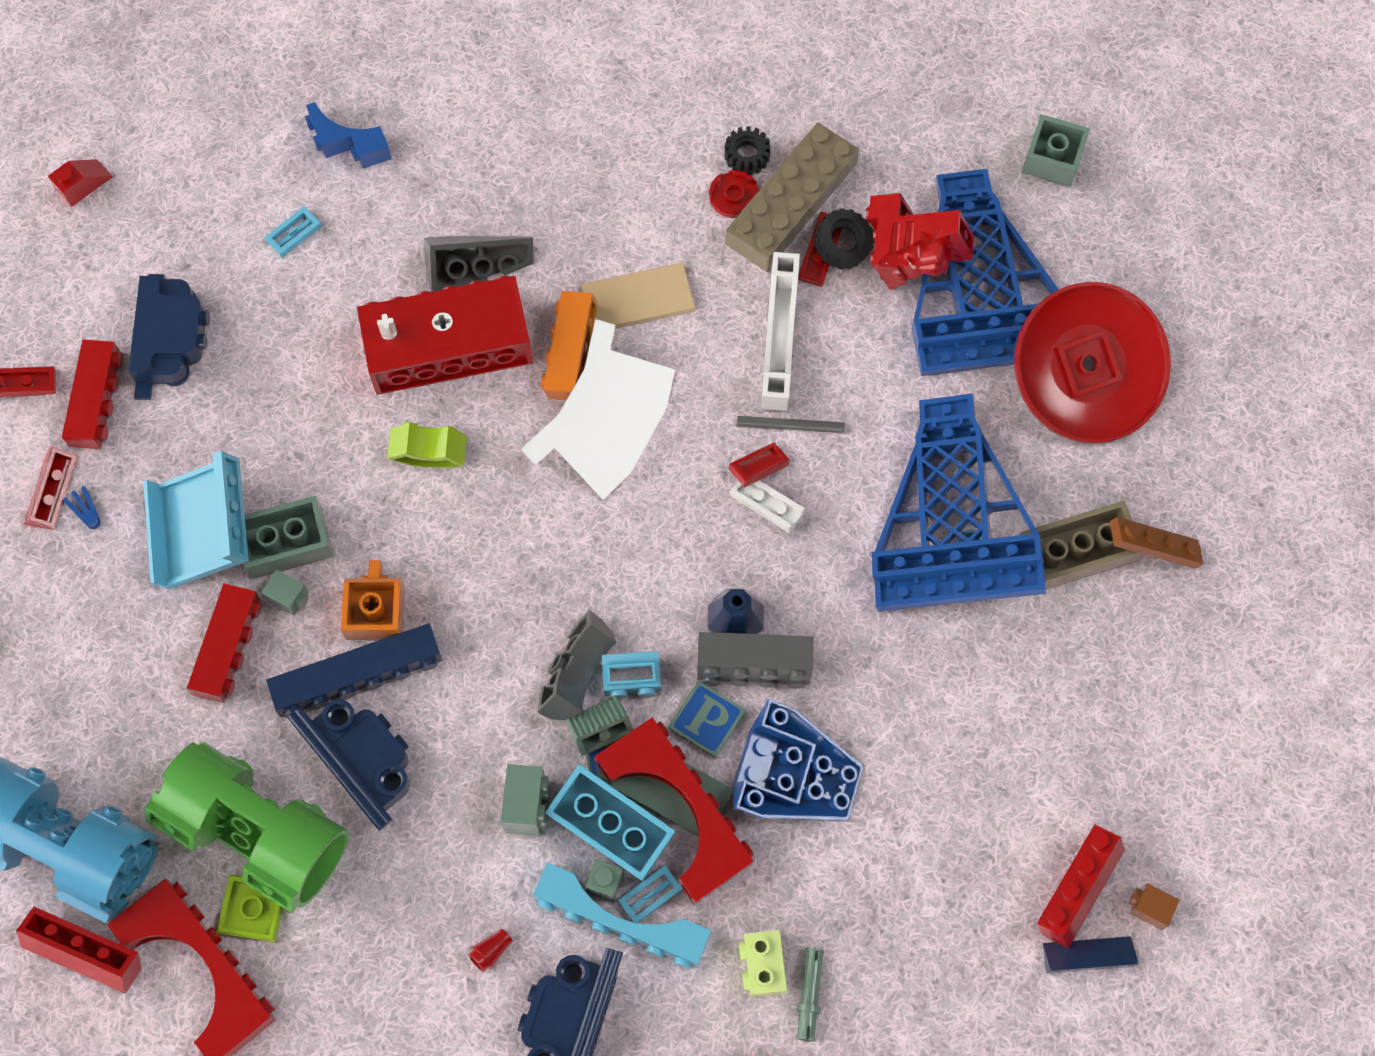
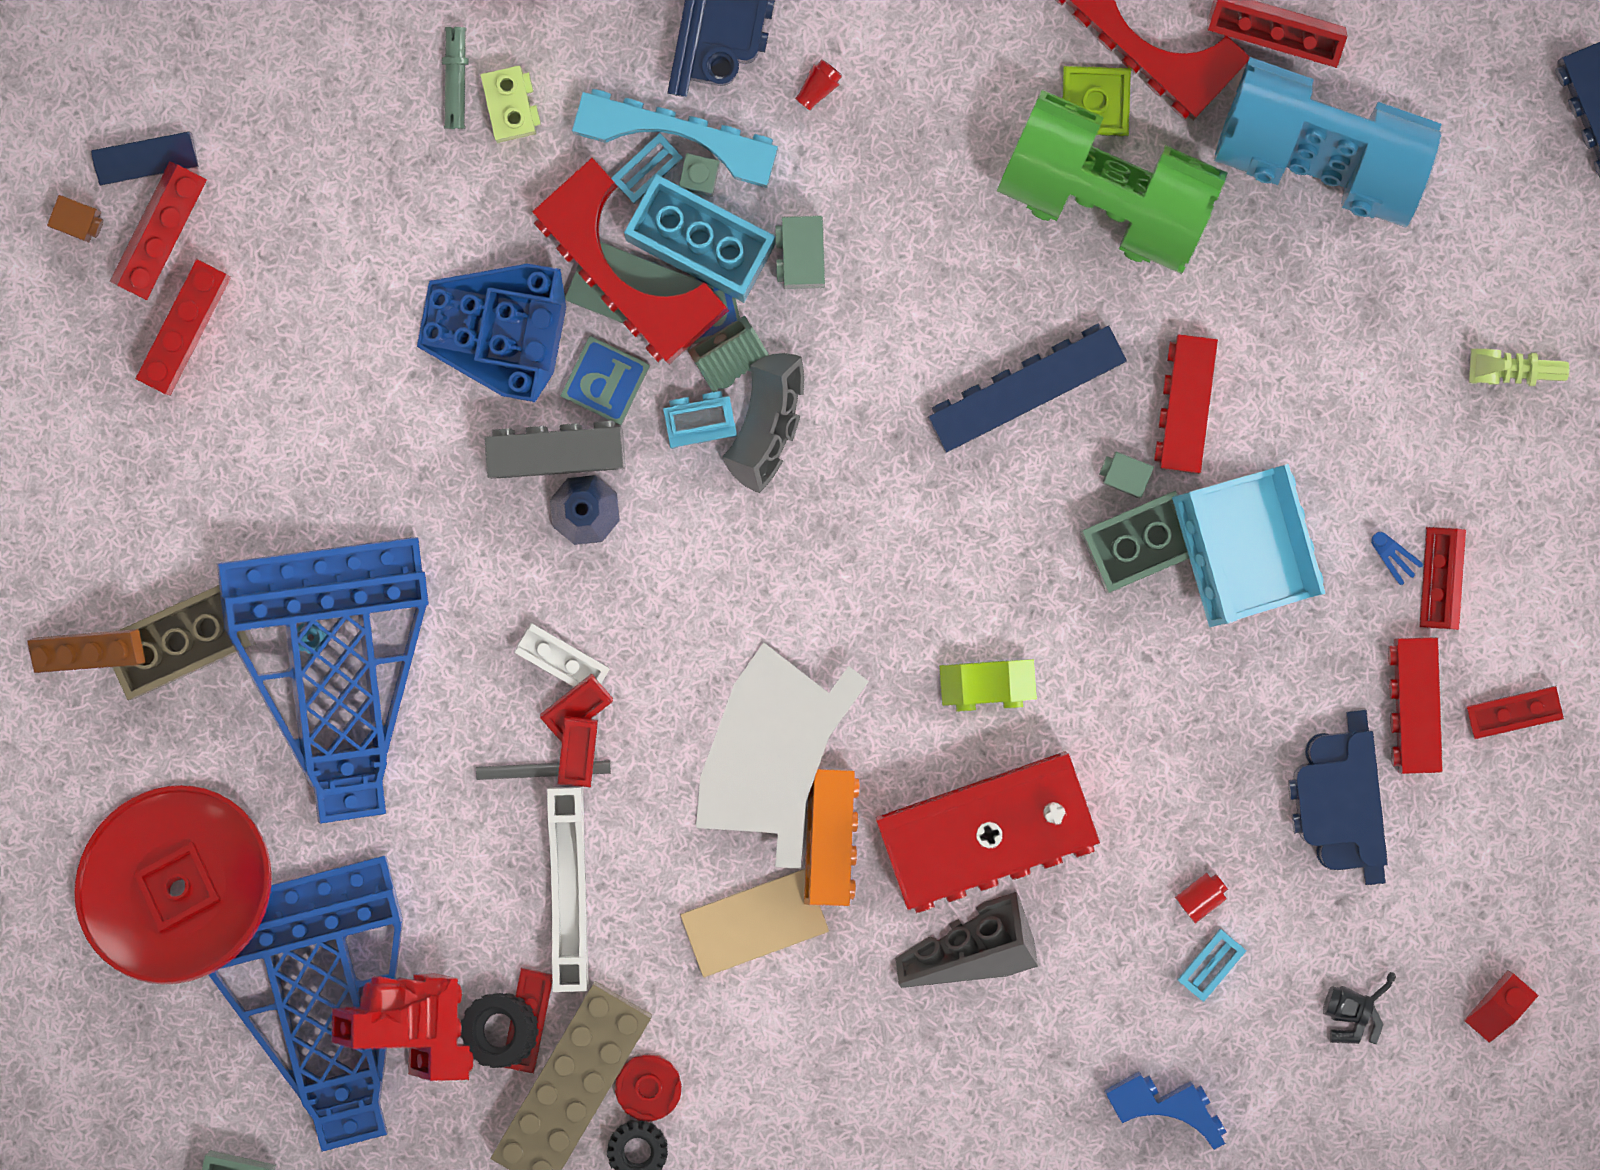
camera: 170 degrees right, 20 degrees up
(190, 189) = (1351, 1006): none -> black piece
(289, 276) = (1202, 896): none -> red brick
(359, 598) = (1035, 479): orange hinge -> none
(359, 755) = (1002, 285): dark blue brick -> none
(761, 430) = (577, 751): none -> red tile
(1063, 801) = (183, 327): none -> red brick

